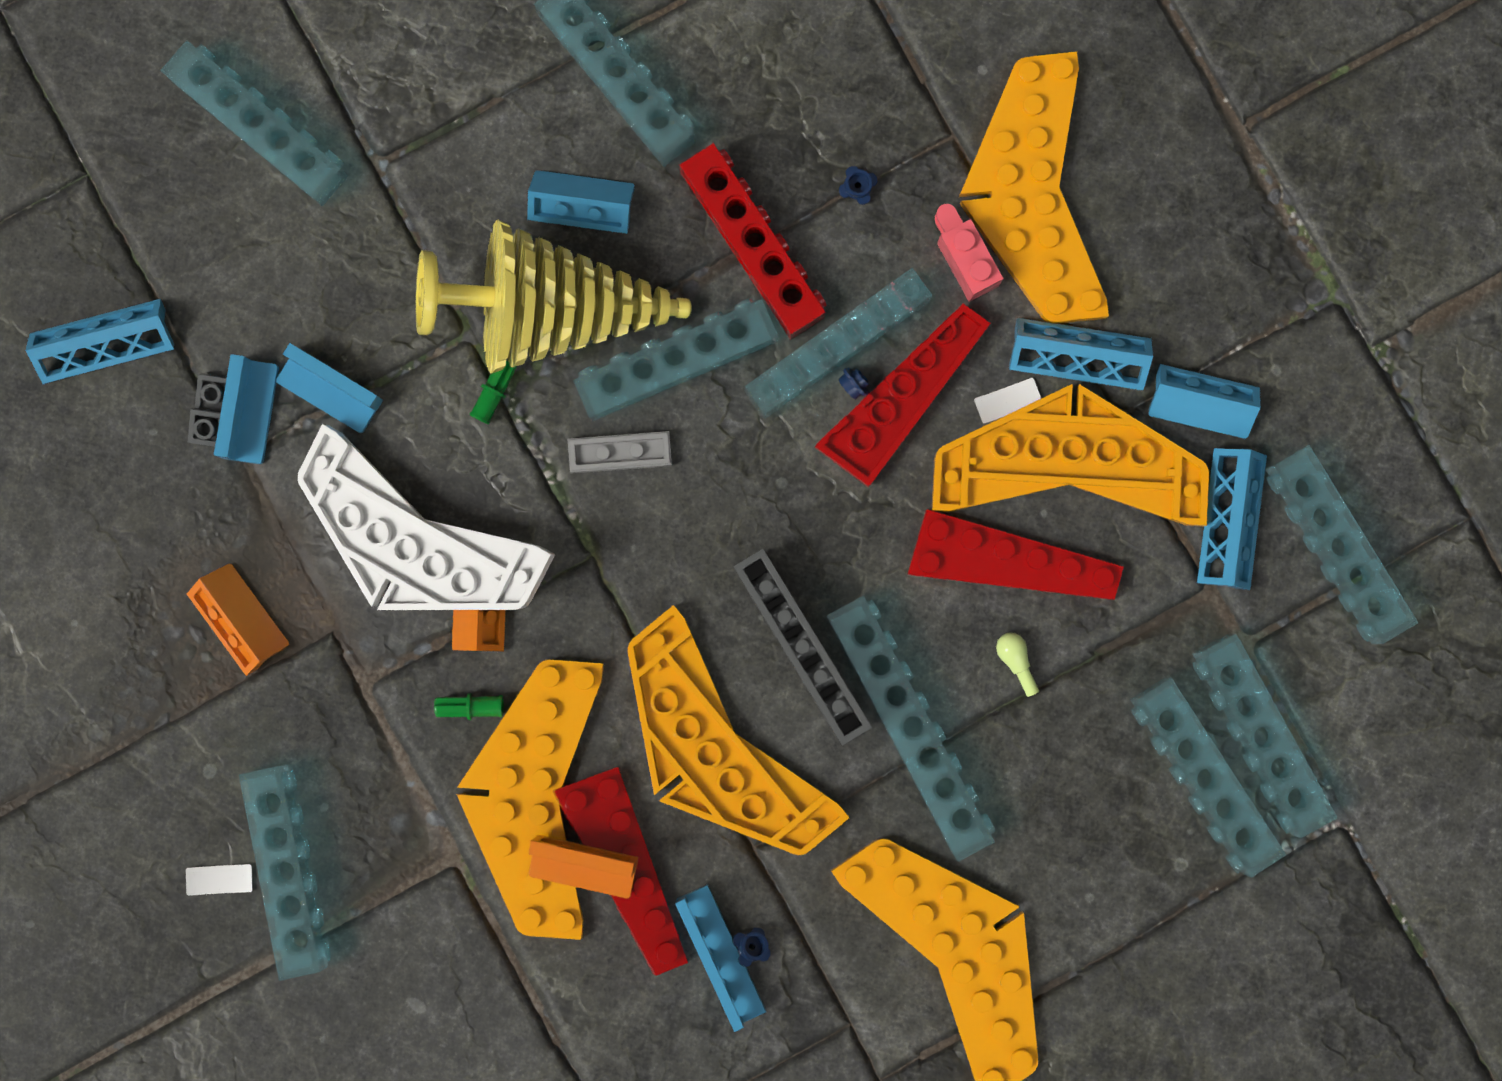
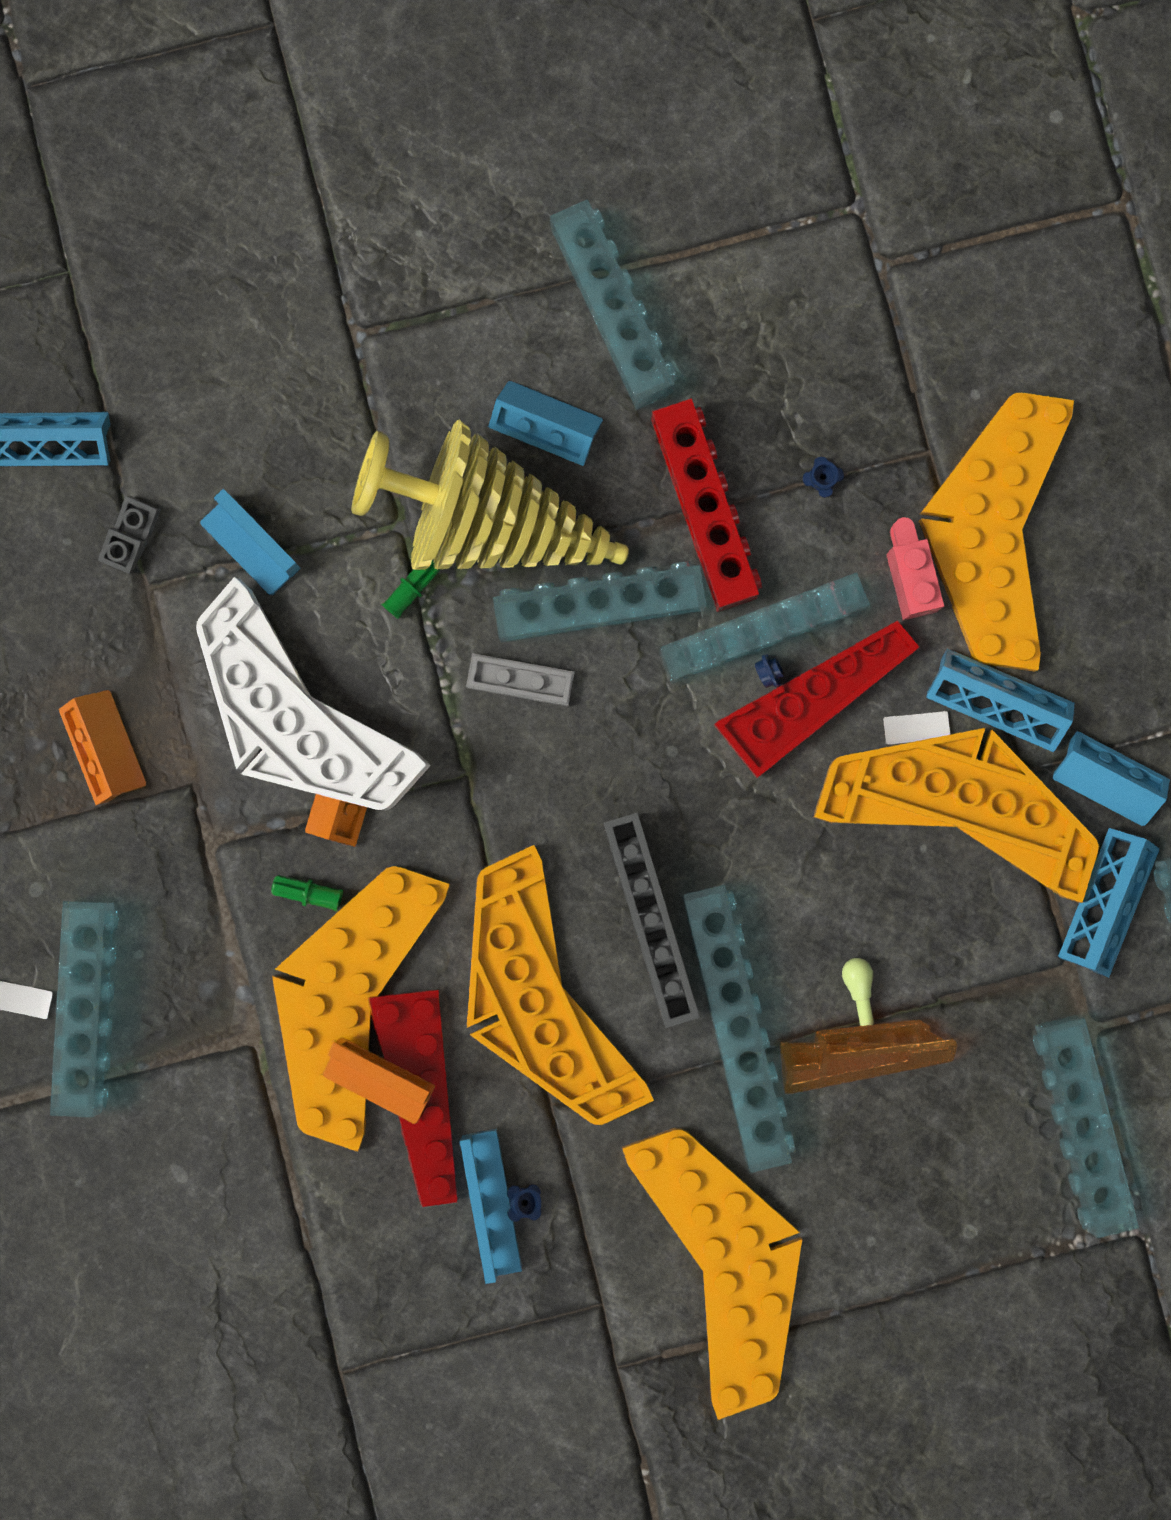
camera: 10 degrees right, 0 degrees up
(188, 68) = (190, 195): clear light blue brick -> none
(246, 410) = (163, 543): dark azure panel -> none
(982, 555) = (852, 874): red wing -> none
(1035, 722) = (861, 1054): none -> clear orange wedge
(1262, 846) = (1055, 1236): clear light blue brick -> none

